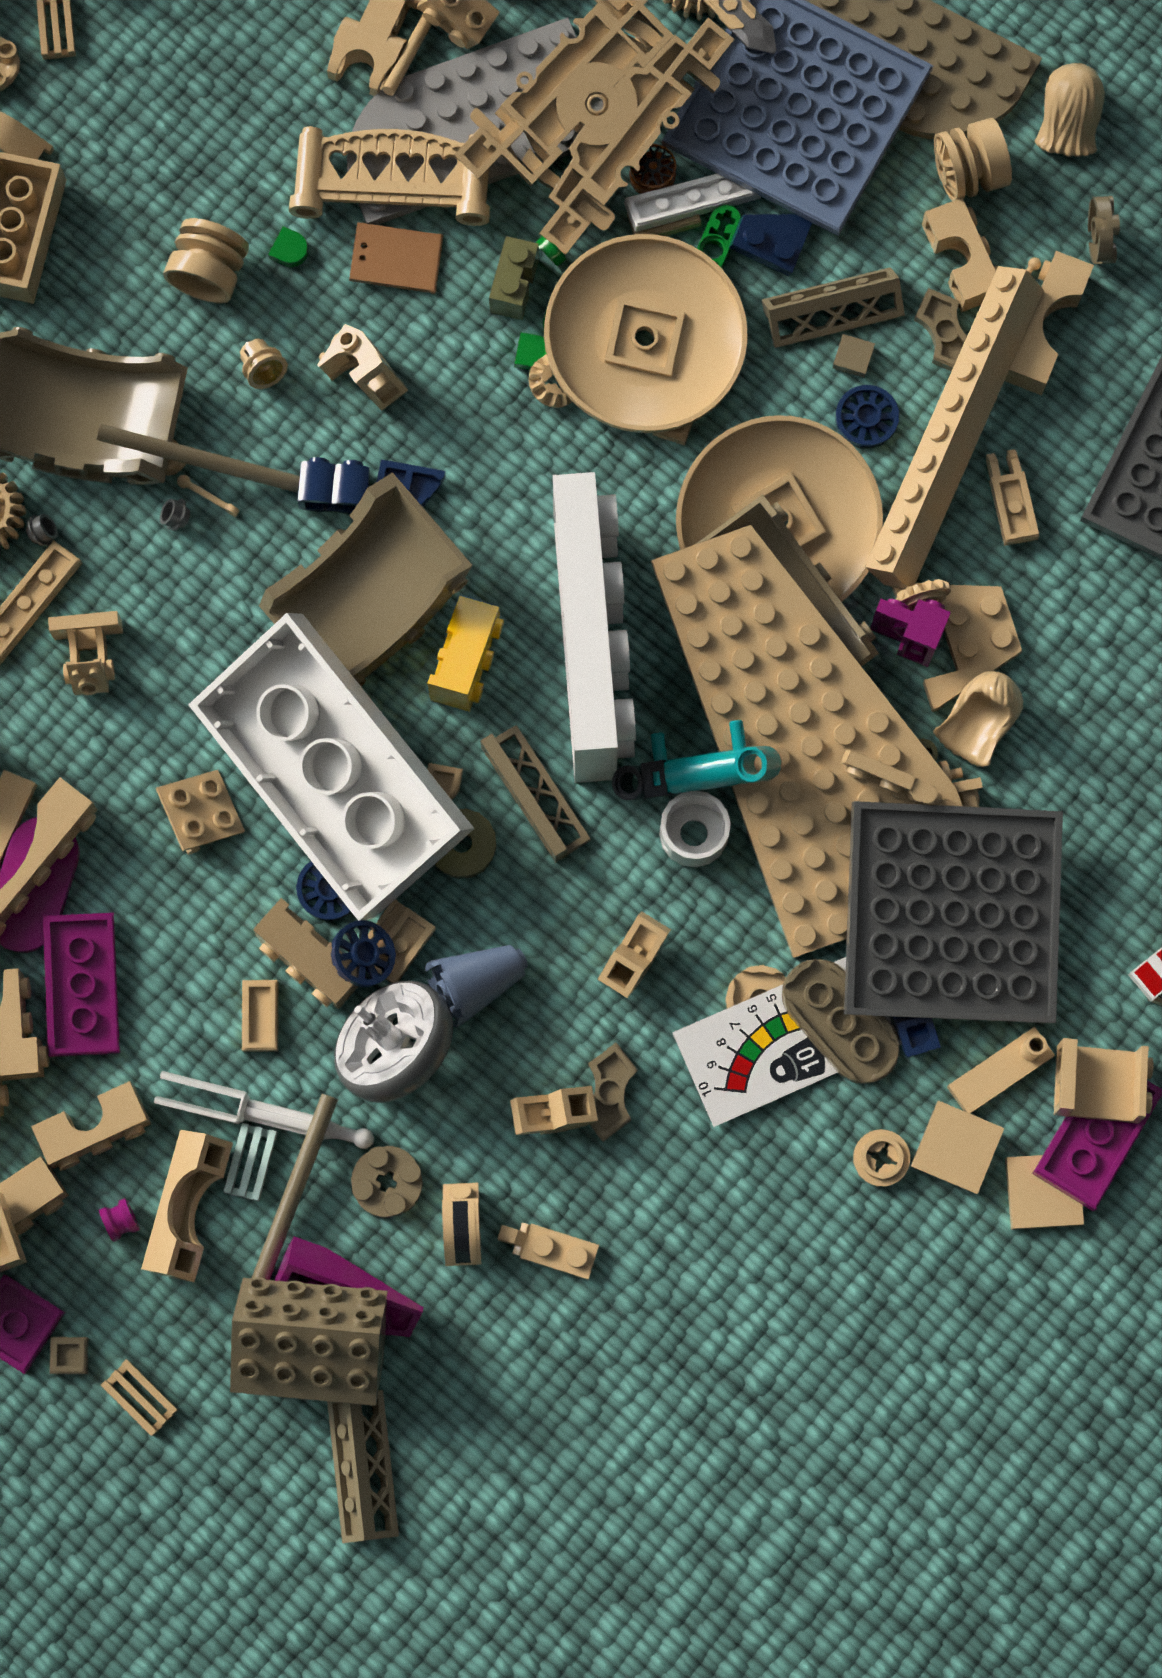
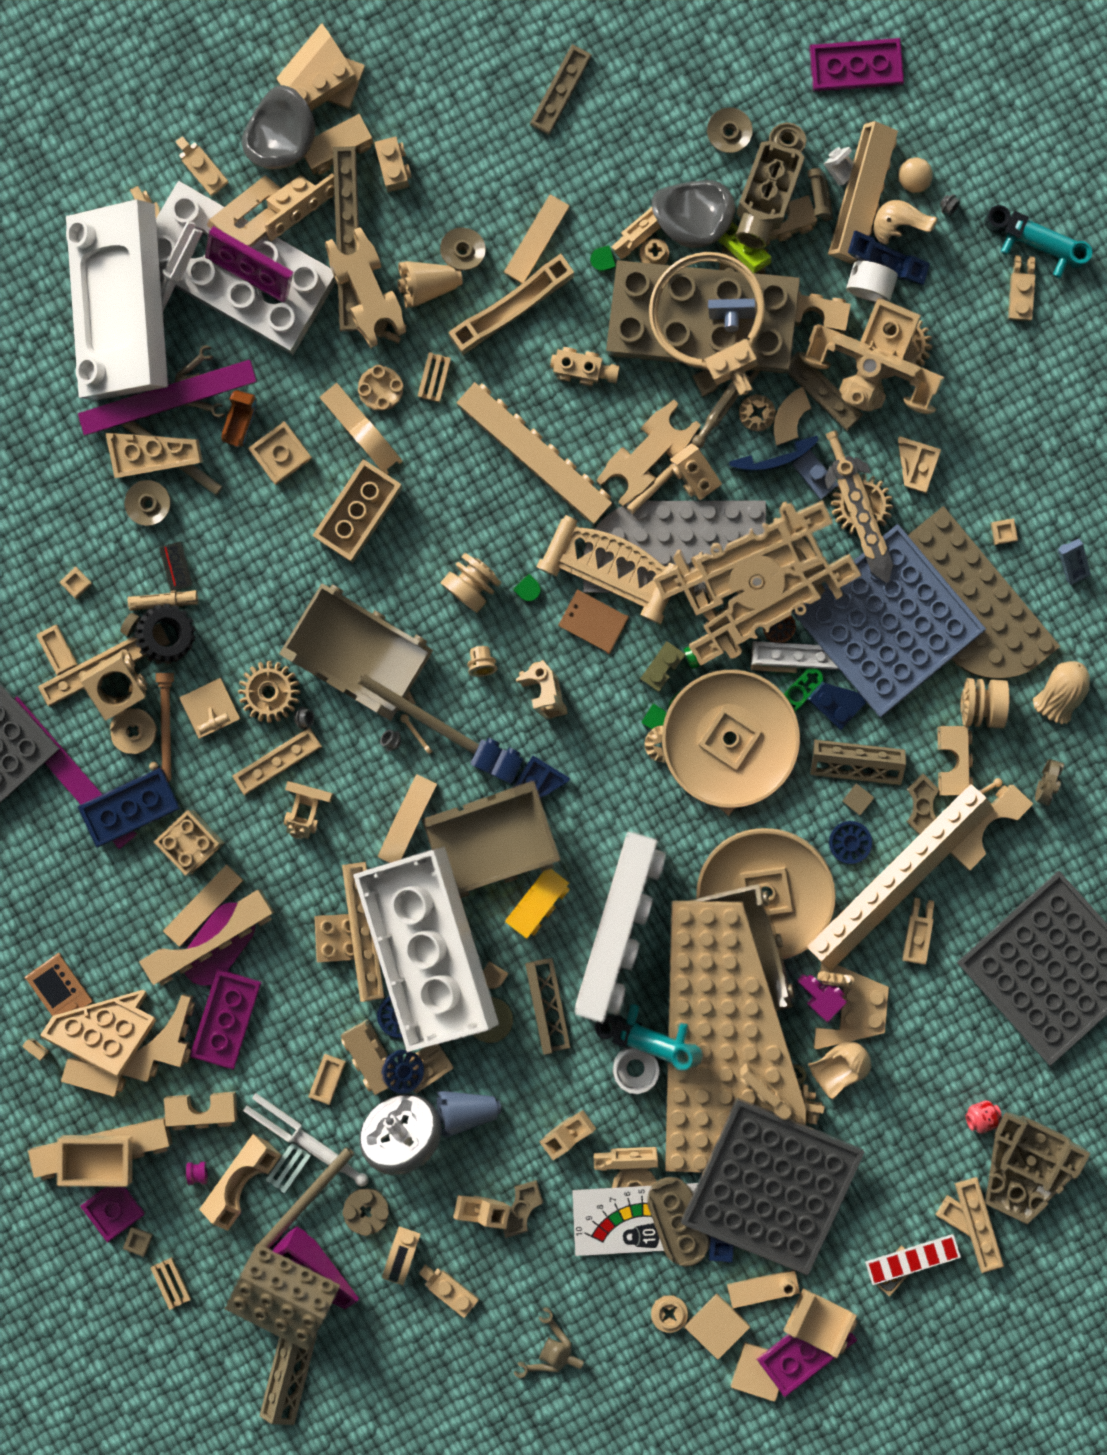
camera: 25 degrees right, 10 degrees up
(229, 69) = (534, 454): none -> tan brick
(237, 798) = (364, 950): none -> tan tile
(238, 606) = (407, 819): none -> tan slope
(730, 961) = (626, 1158): none -> tan hinge
(737, 1278) = (553, 1352): none -> dark tan piece

